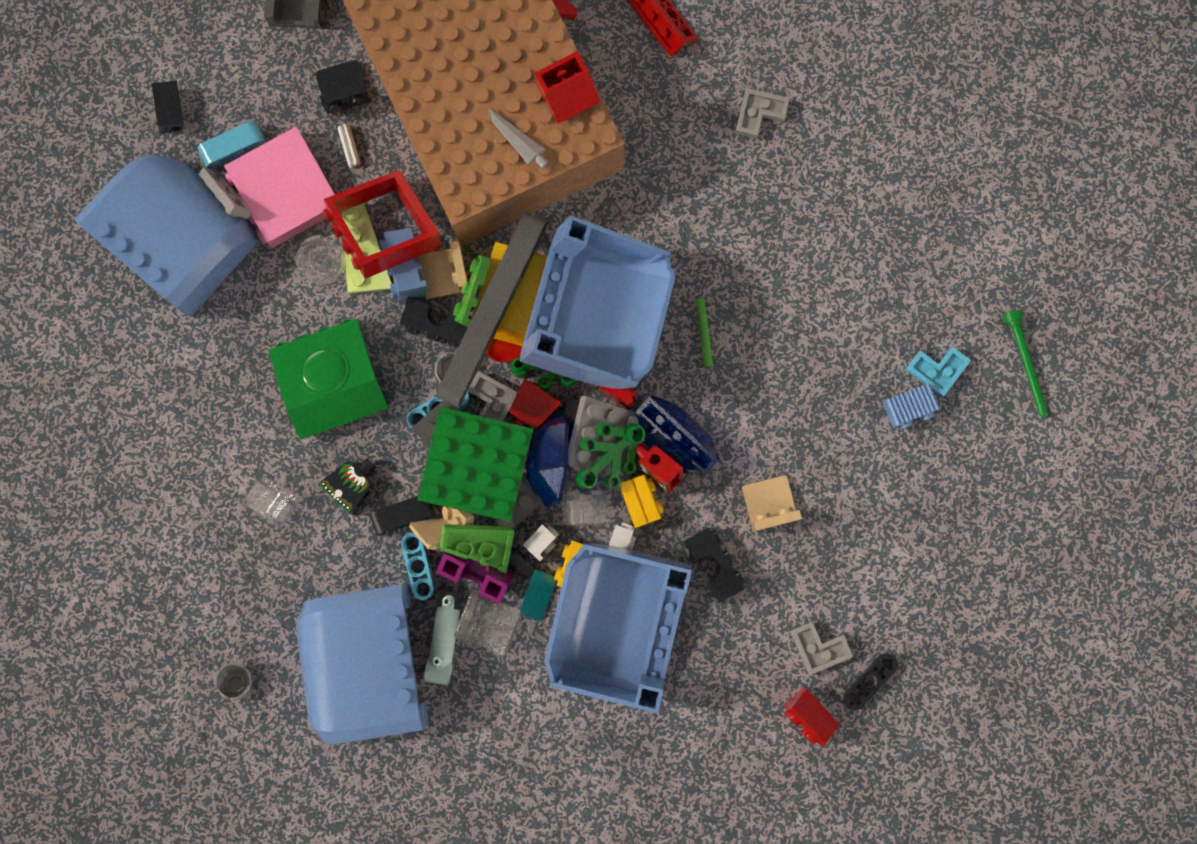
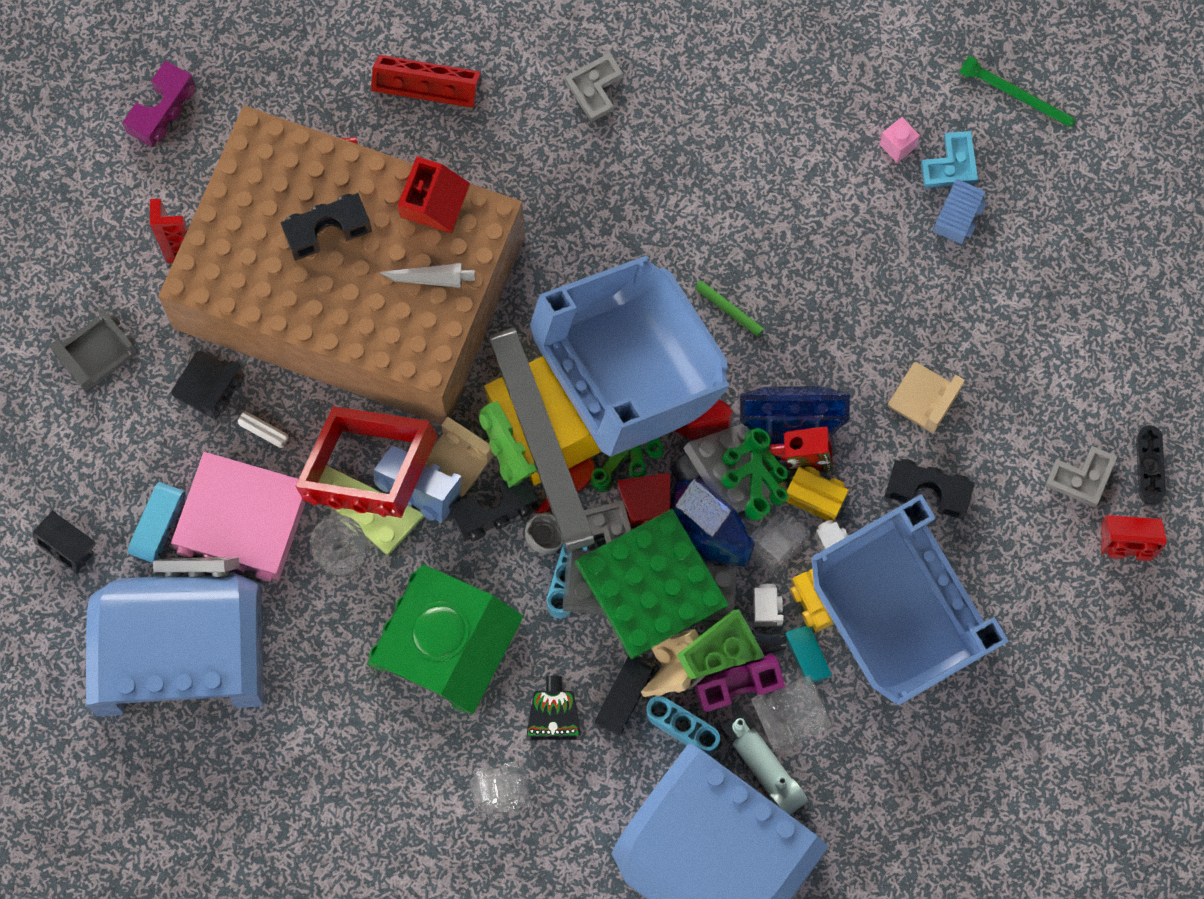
camera: 45 degrees left, 10 degrees down
(465, 36) = (345, 213): none -> black arch
(918, 323) = (899, 139): none -> bright pink brick

